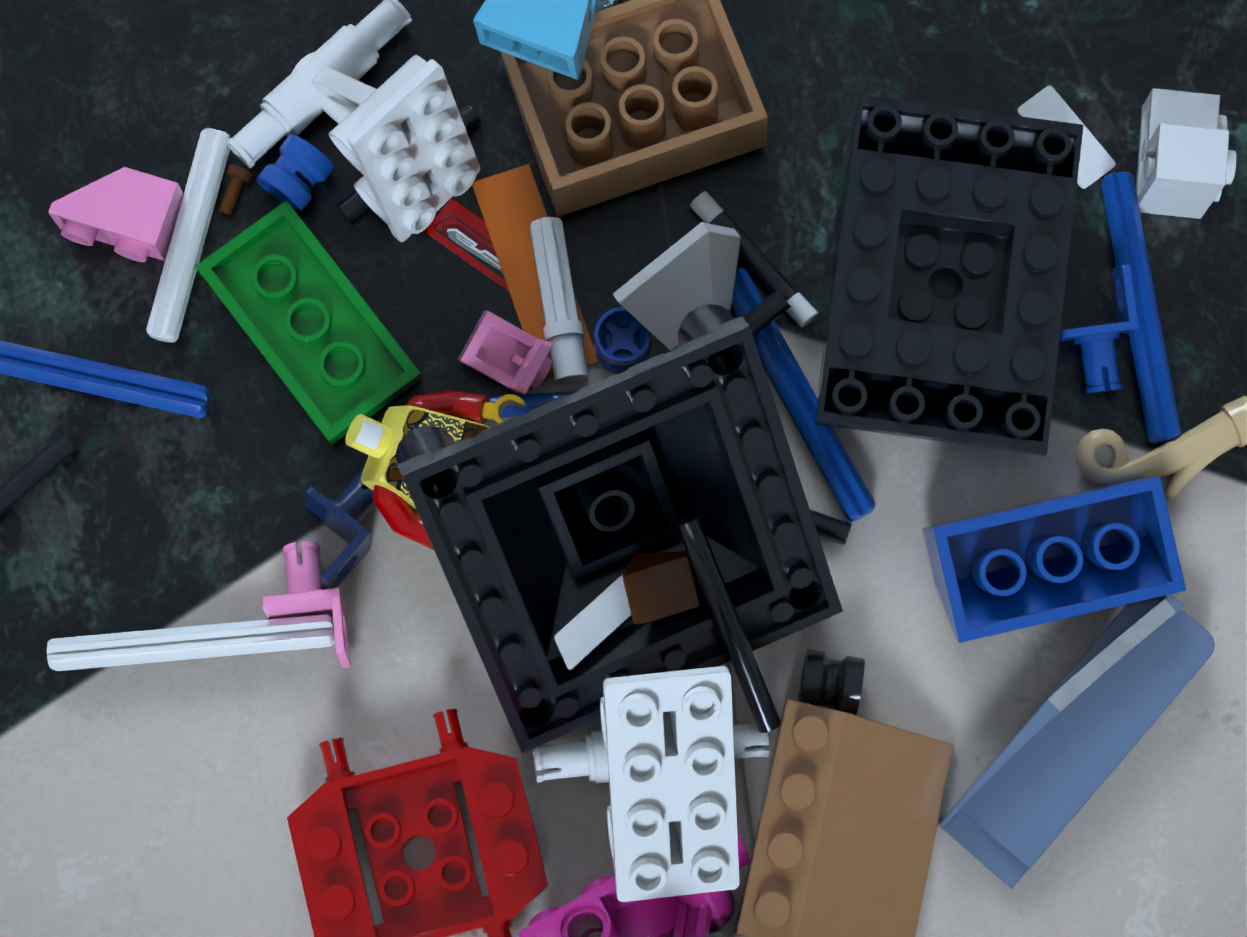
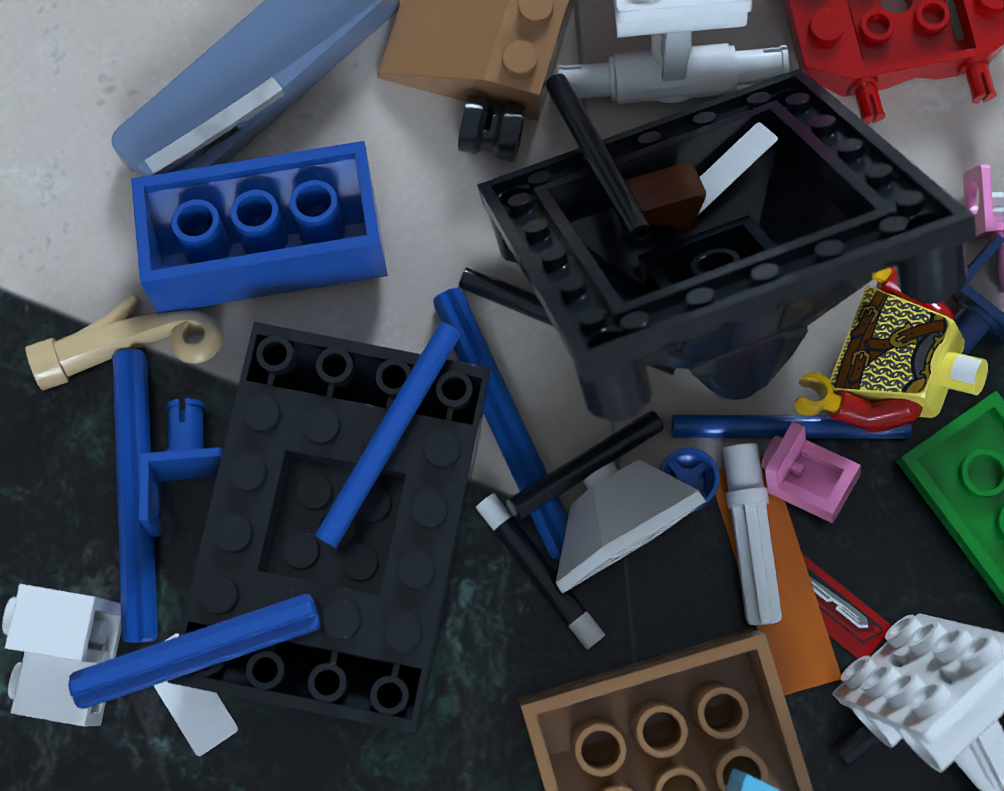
camera: 175 degrees left, 0 degrees up
(907, 344) = (387, 434): none -> blue piece
(1060, 142) = (193, 651): none -> blue axle

